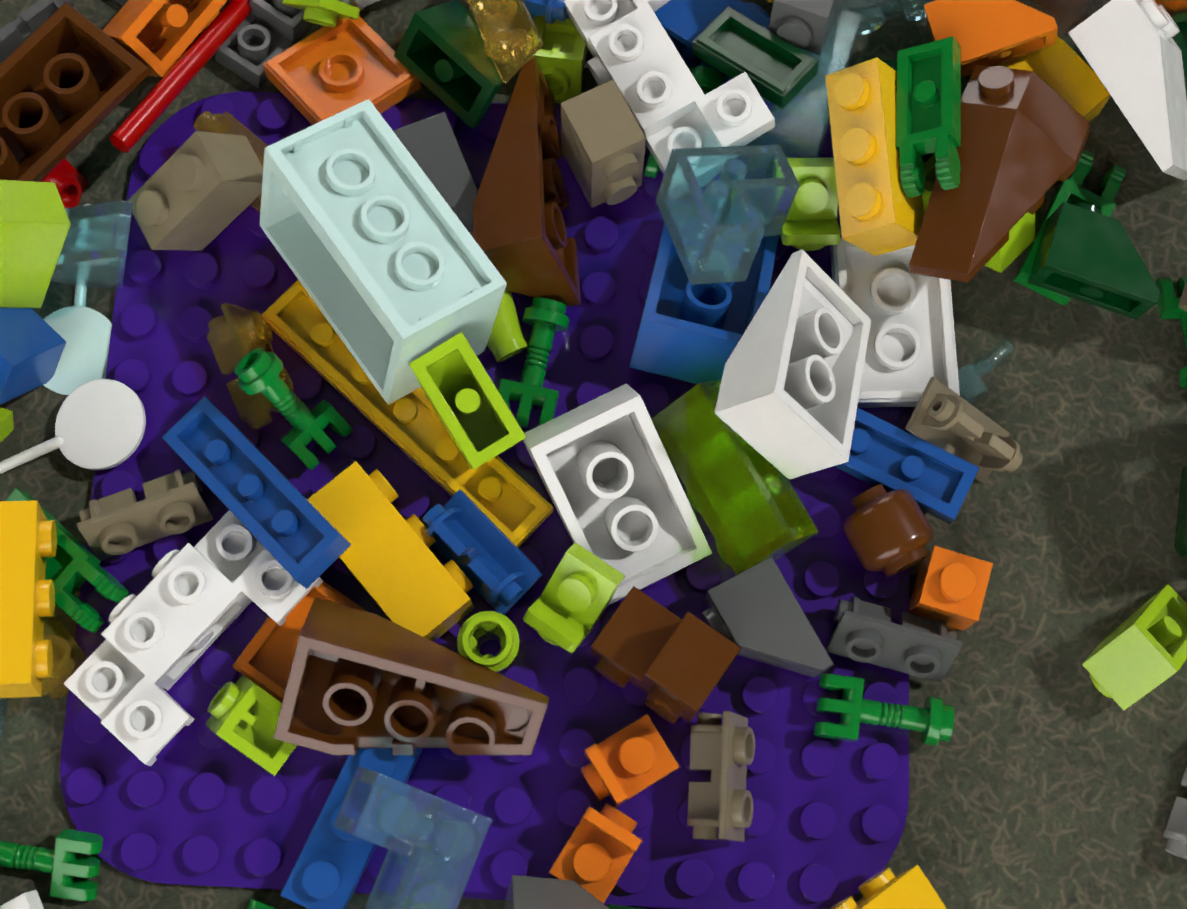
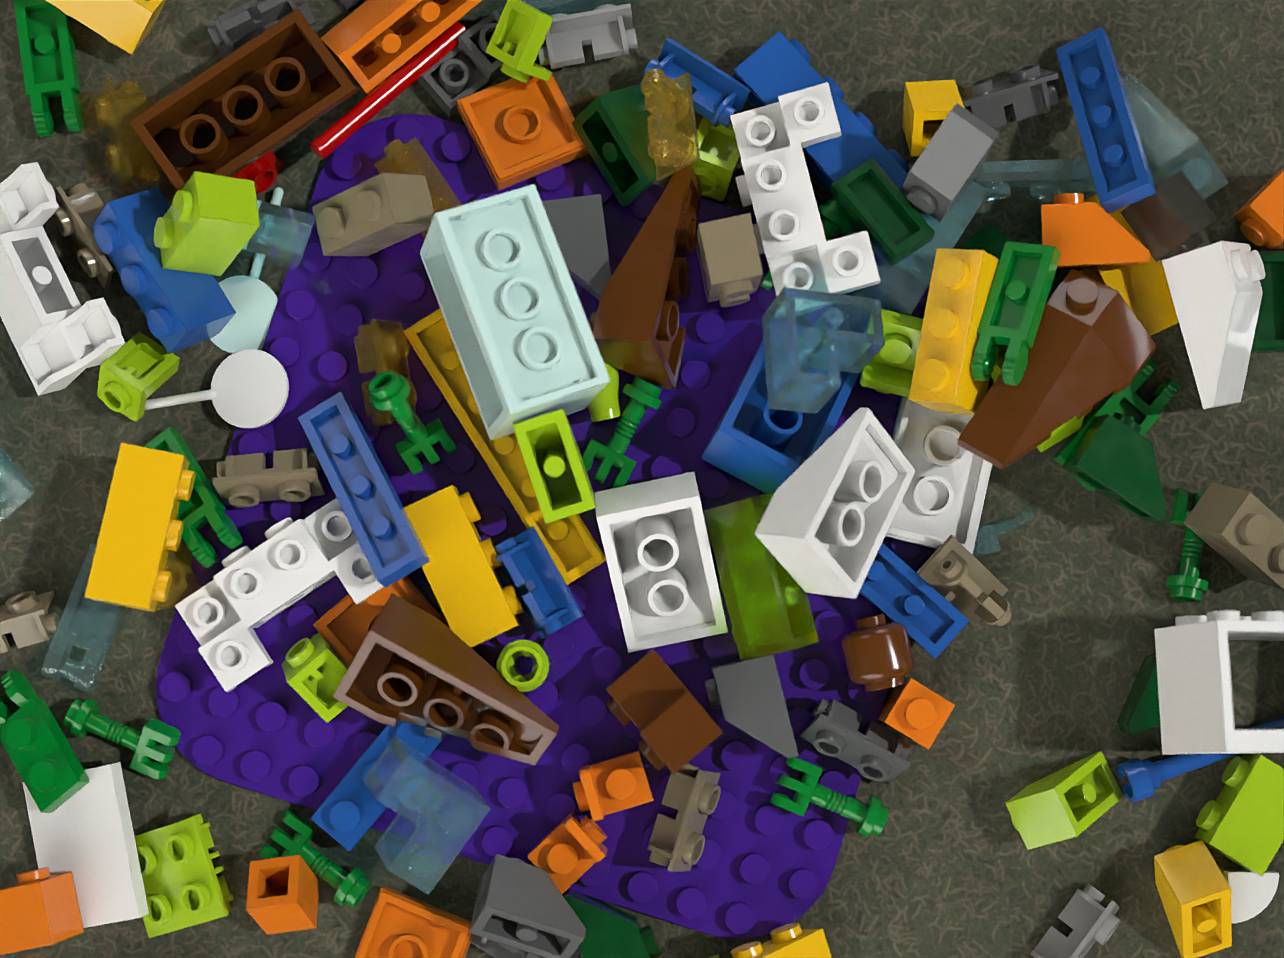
camera: 15 degrees right, 10 degrees up
(574, 598) = (602, 643): lime bracket -> none

